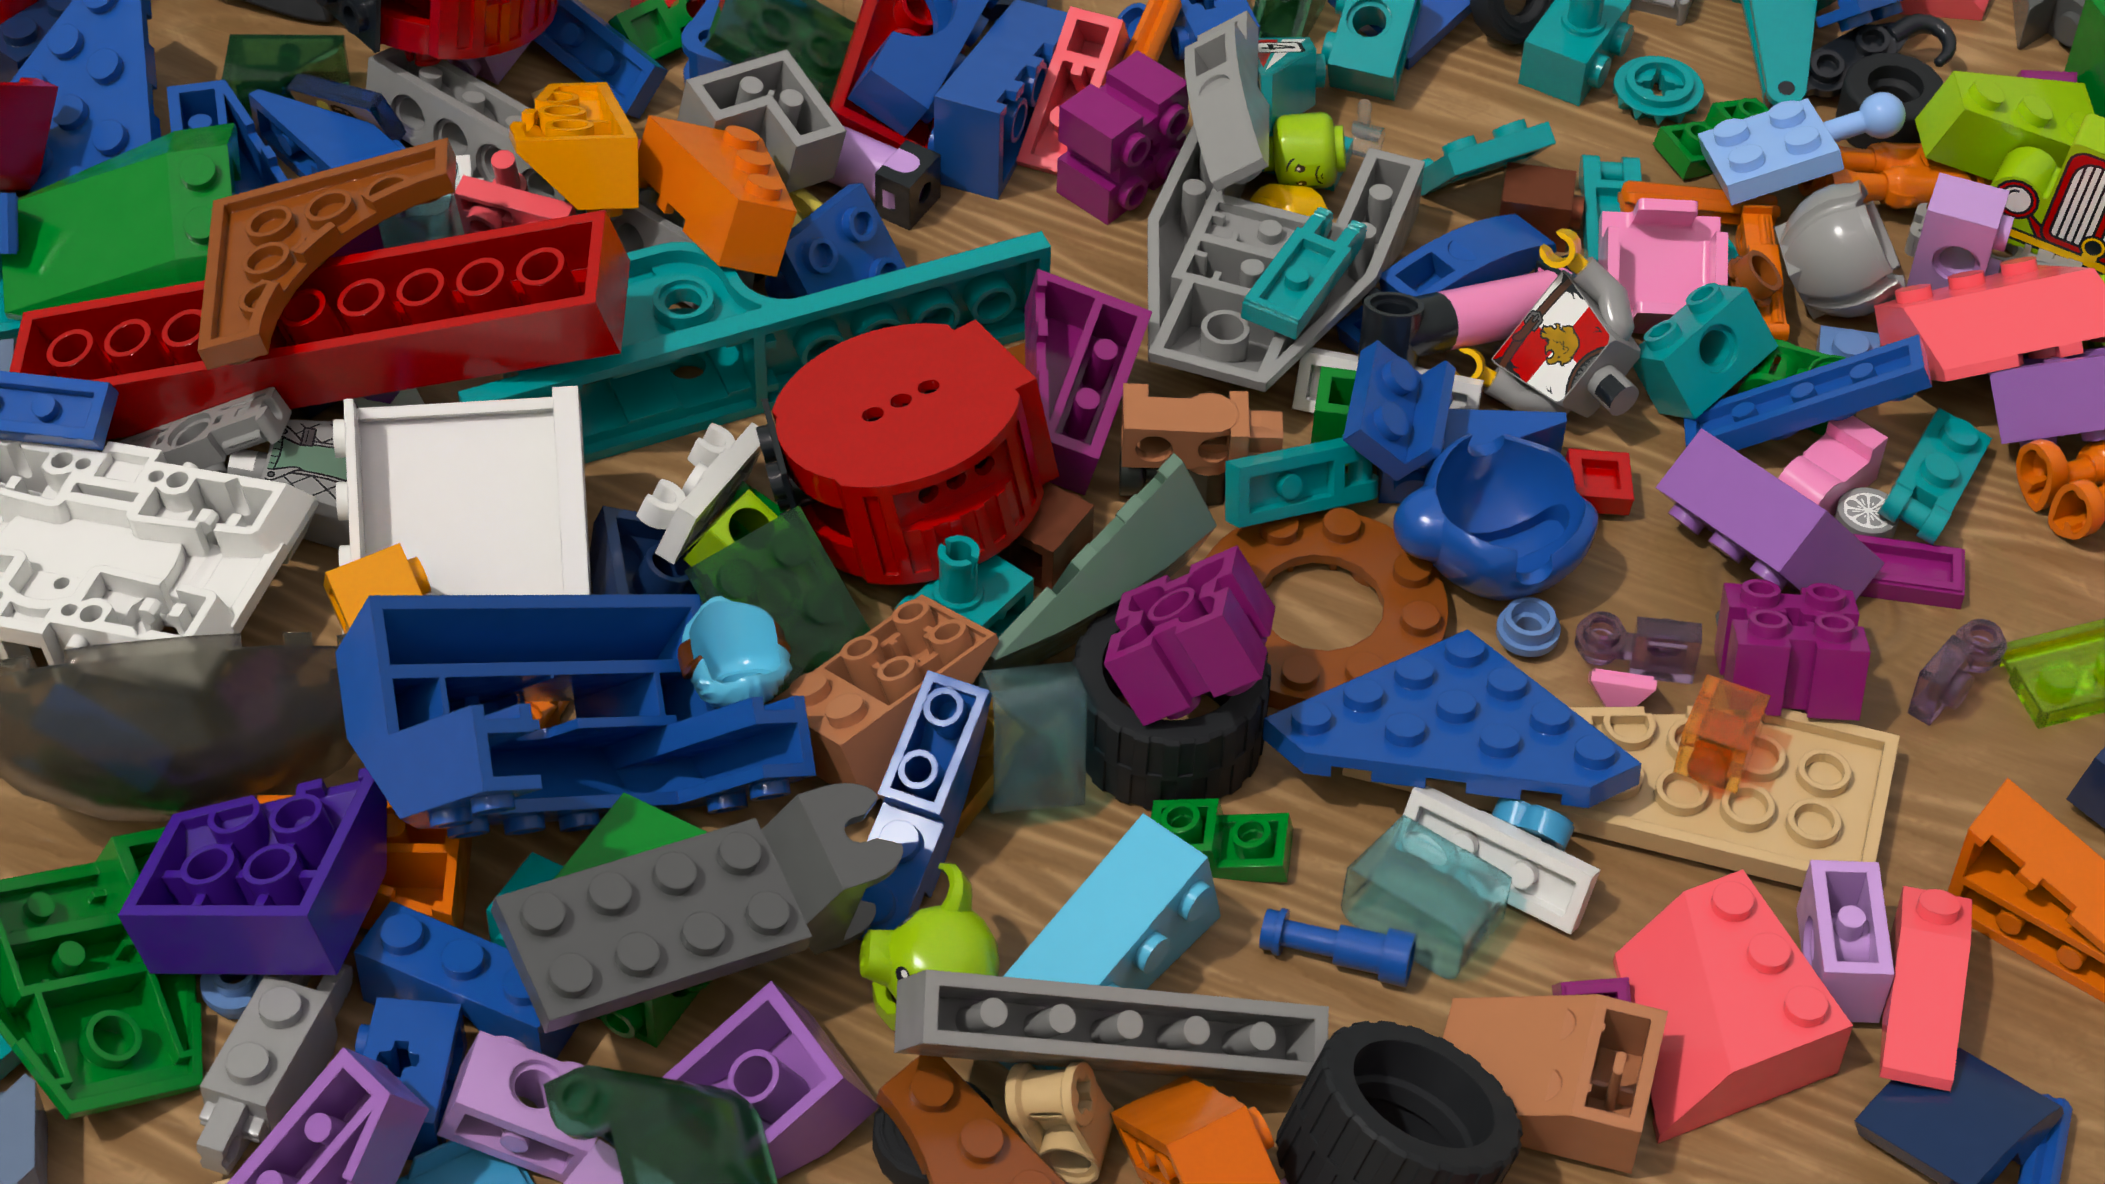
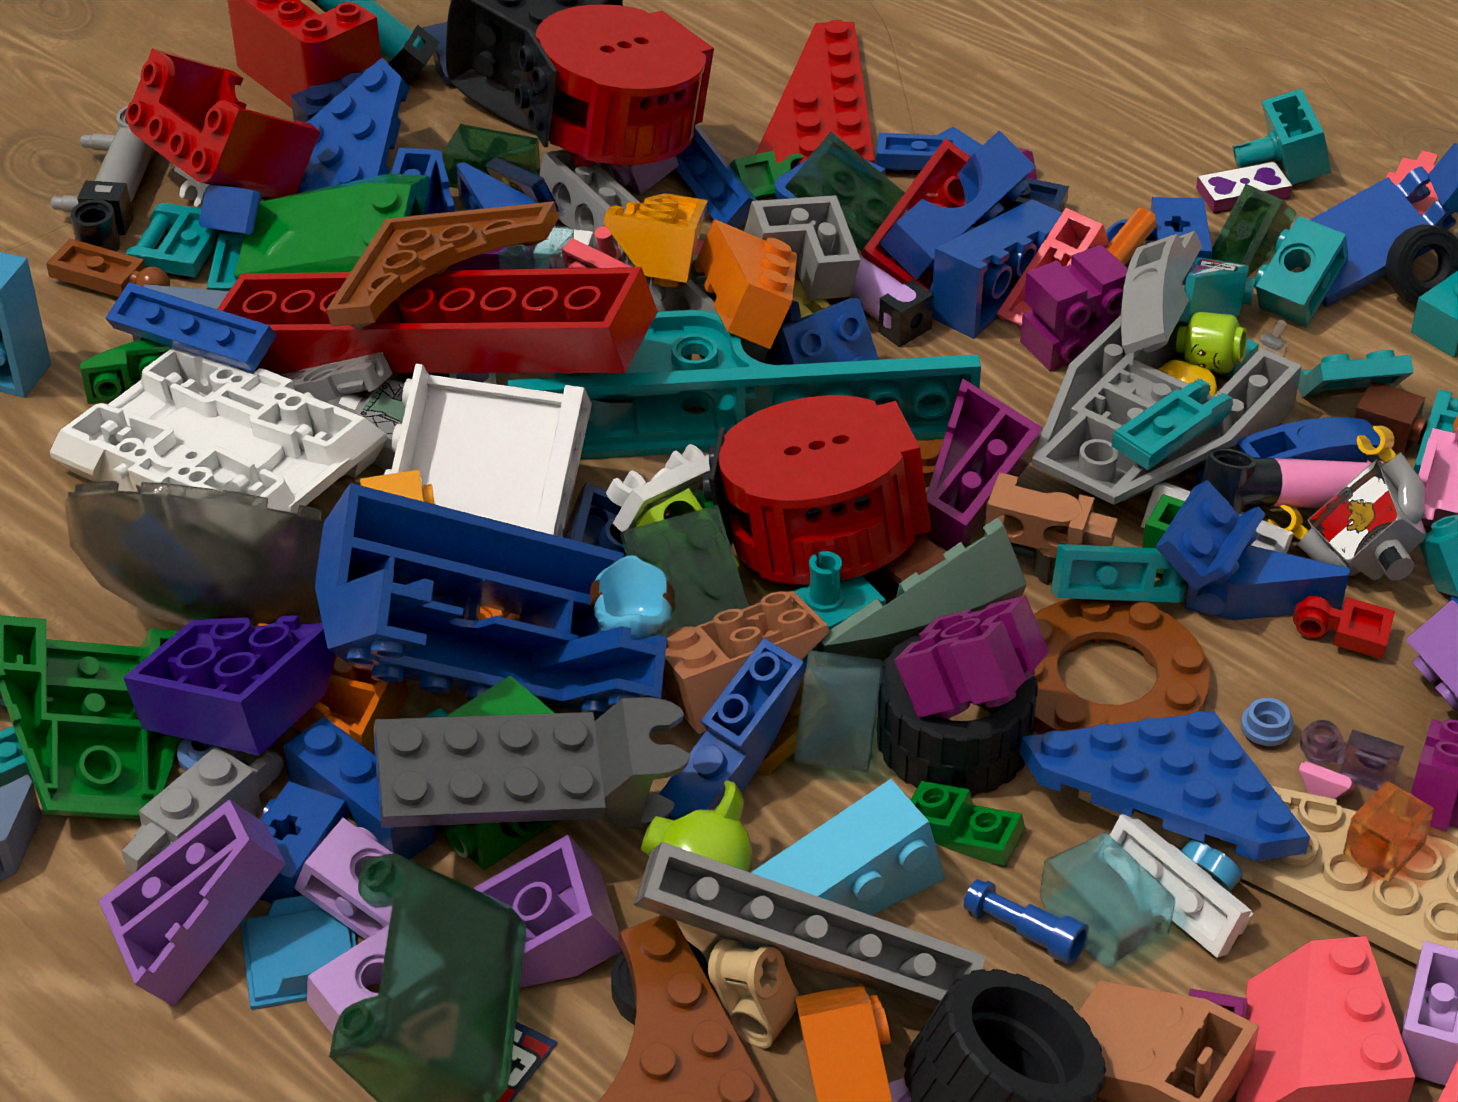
camera: 20 degrees right, 5 degrees down
(1498, 518) = (1264, 632): blue piece -> none

